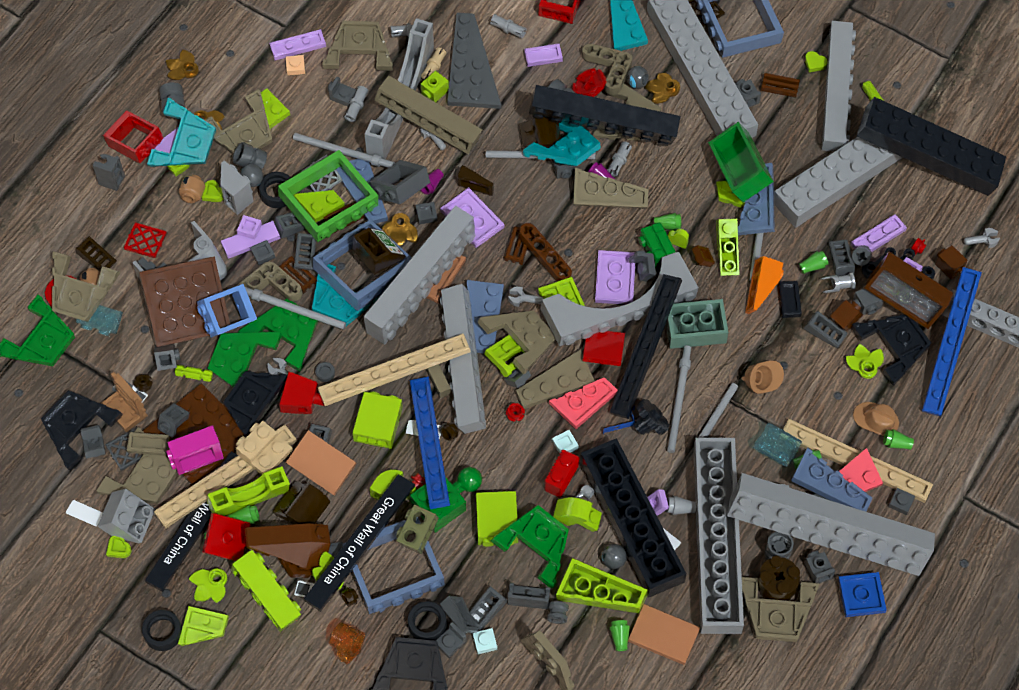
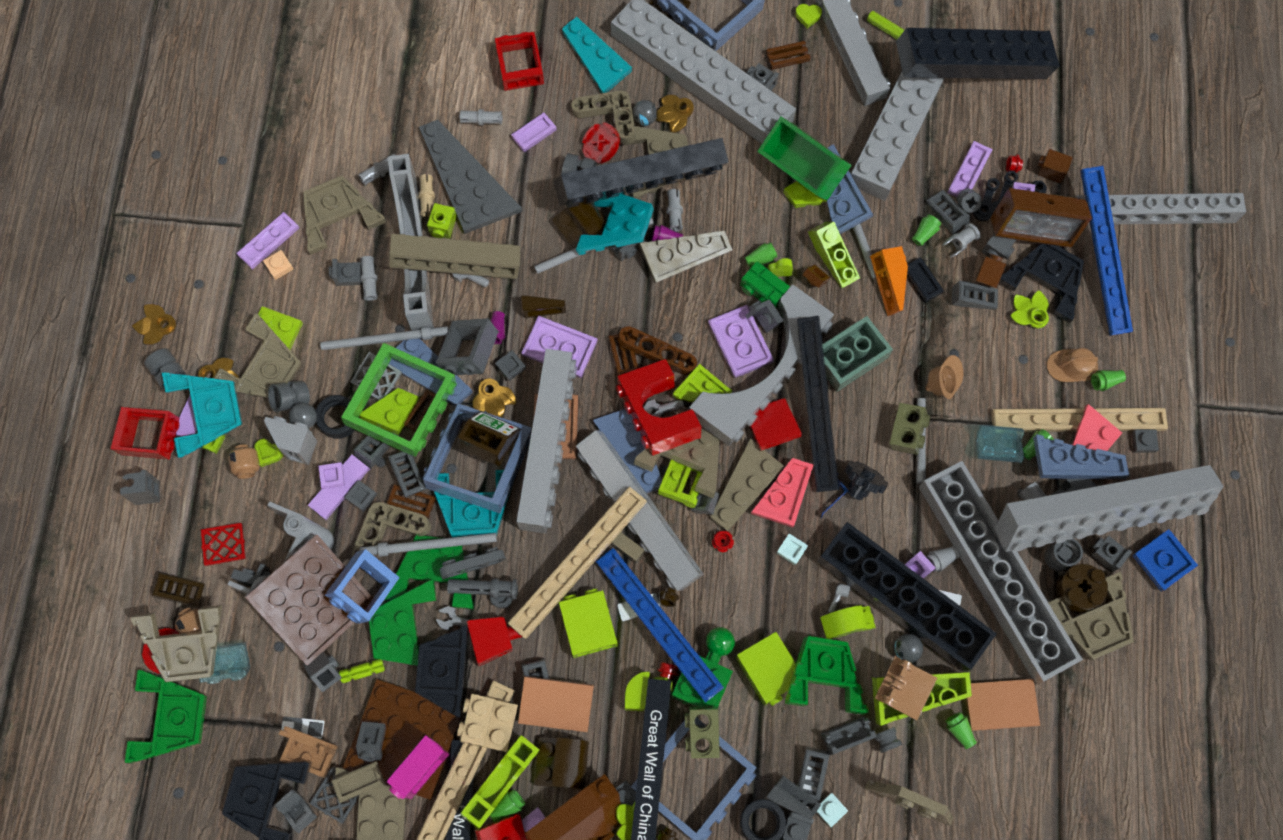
camera: 30 degrees left, 10 degrees up
(142, 387) = (316, 715): dark brown plate -> none
(316, 335) = (472, 562): none -> dark grey plate
(322, 360) = (494, 587): none -> dark grey pin
(510, 308) = (656, 432): none -> red arch
(561, 473) = (808, 586): red brick -> none
(590, 574) = (906, 688): none -> medium nougat hinge
(684, 366) = (861, 402): light grey bar -> none
(707, 397) = (904, 428): none -> olive brick
(985, 238) = (1076, 127): light grey bar -> none

